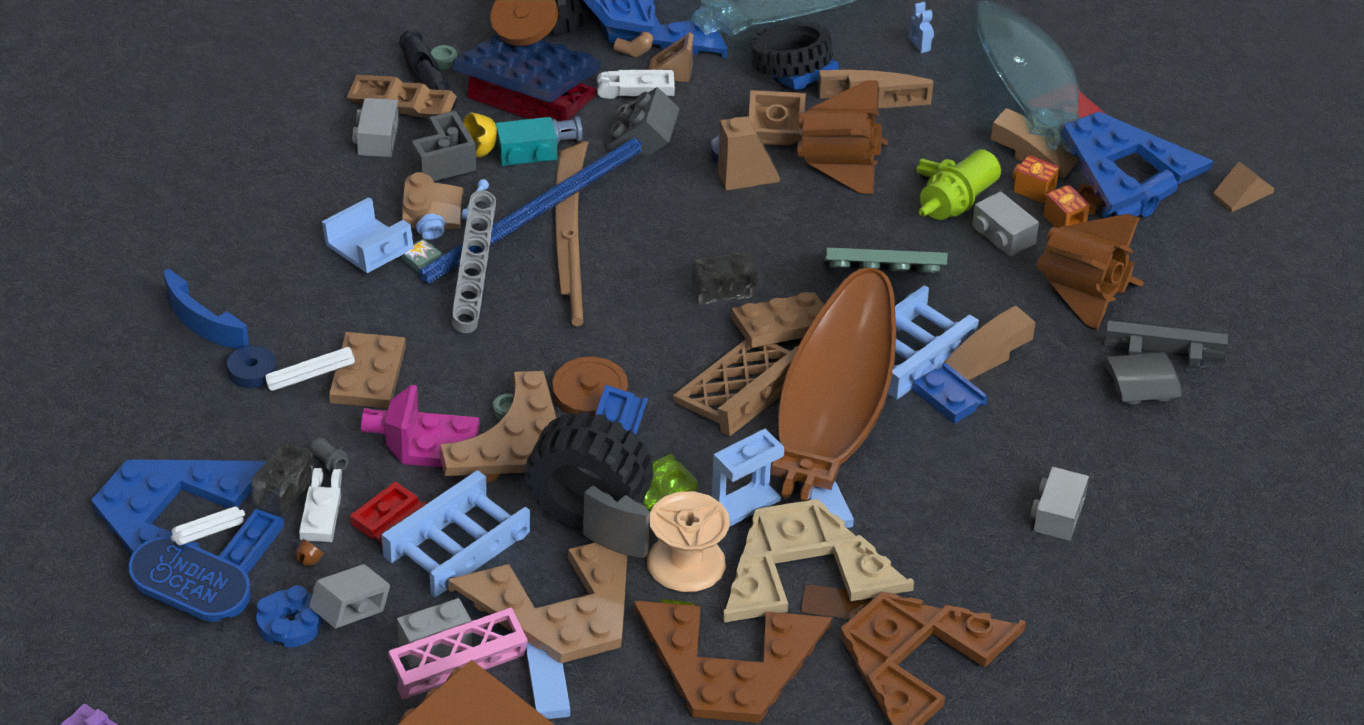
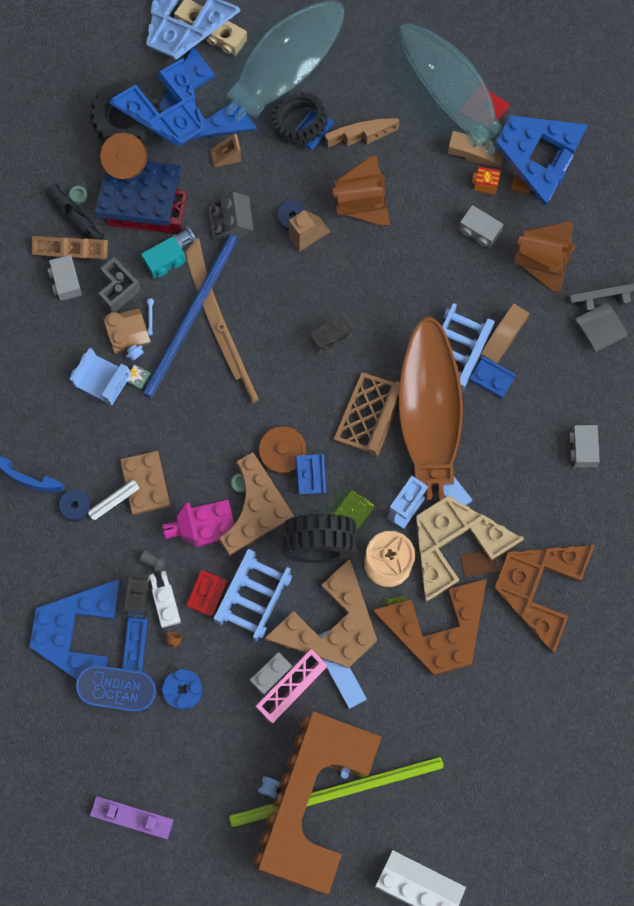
camera: 20 degrees left, 30 degrees up
(207, 525) = (109, 646): white axle -> none
(349, 596) = (213, 668): light grey brick -> none
(472, 260) = (172, 376): light grey beam -> none
(482, 131) = (134, 264): yellow hair -> none
(616, 525) = (356, 566): dark grey slope -> none
(634, 82) = (211, 178): white hinge -> none
(636, 47) = (197, 145): medium nougat arm -> none
(776, 116) = (311, 183): medium nougat slope -> none
(777, 319) = (376, 355): medium nougat plate -> none
(896, 260) = (425, 295): sand green plate -> none
(920, 30) = (373, 69): light blue plate -> none
(954, 185) = (442, 204): lime piece -> none
(1065, 207) = (513, 200): orange brick -> none
(1241, 188) = (611, 143): medium nougat slope -> none

